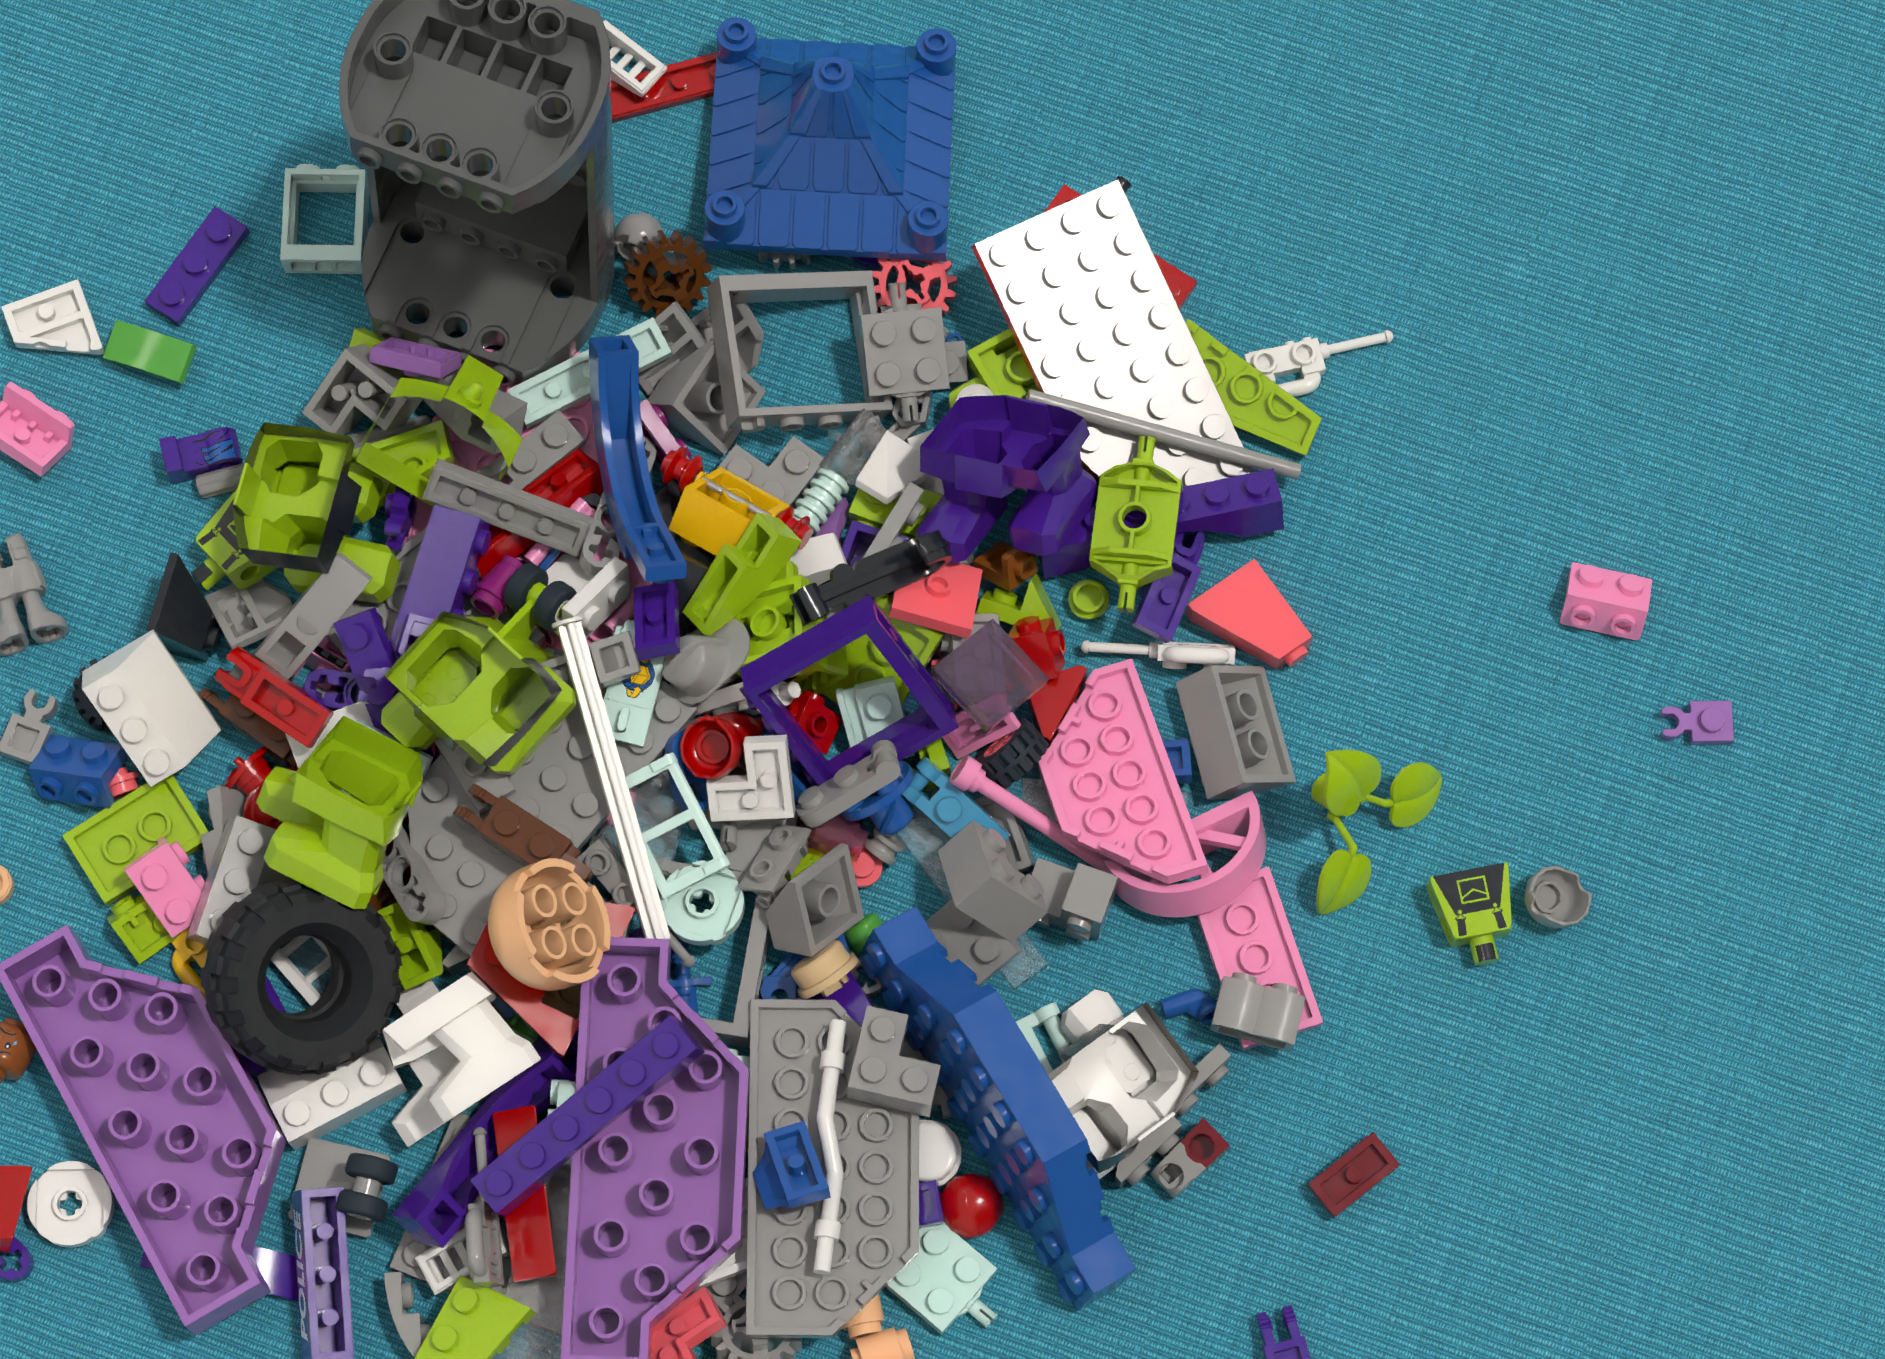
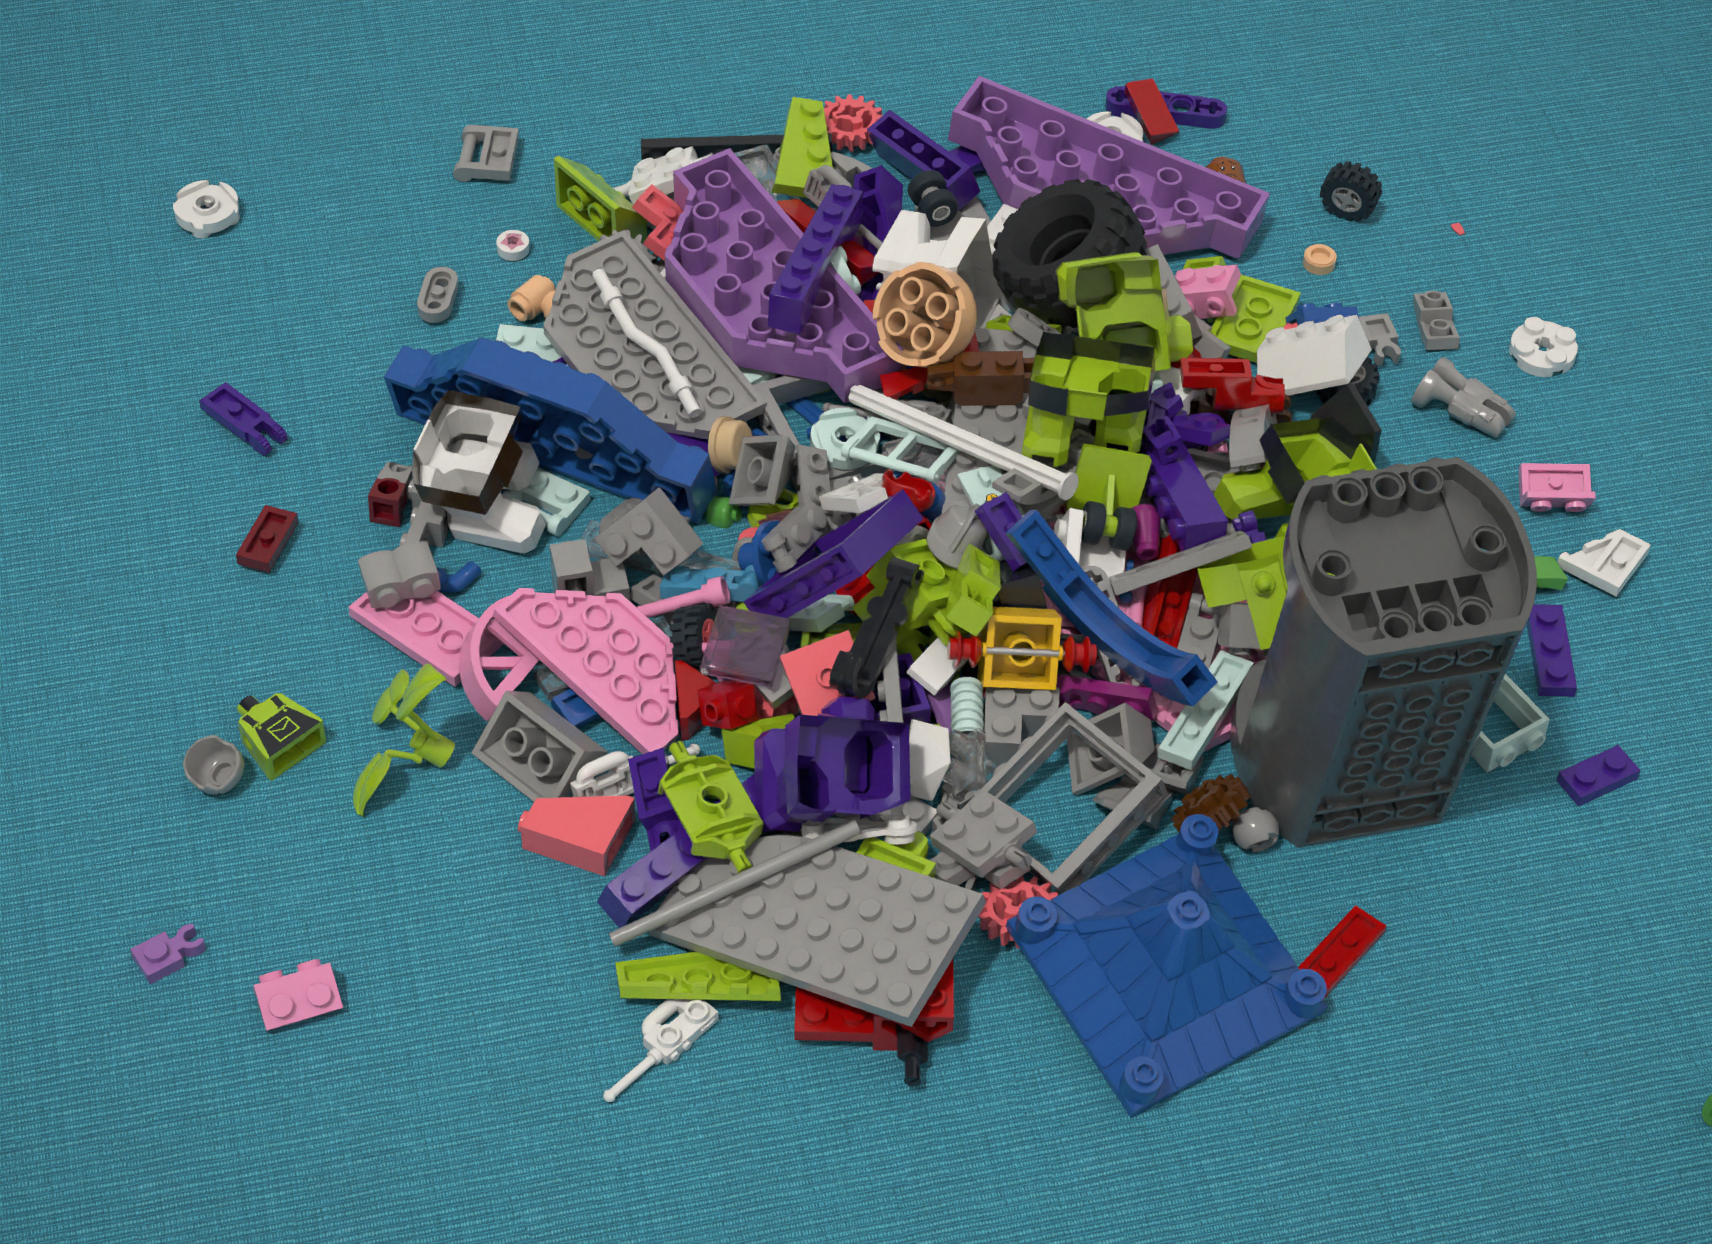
camera: 145 degrees right, 25 degrees down
(276, 113) = (1598, 775): none -> dark purple plate
(631, 50) = (1383, 933): white slope -> none
(790, 1169) = (656, 311): blue slope -> none
(885, 1076) = (646, 388): light grey brick -> none

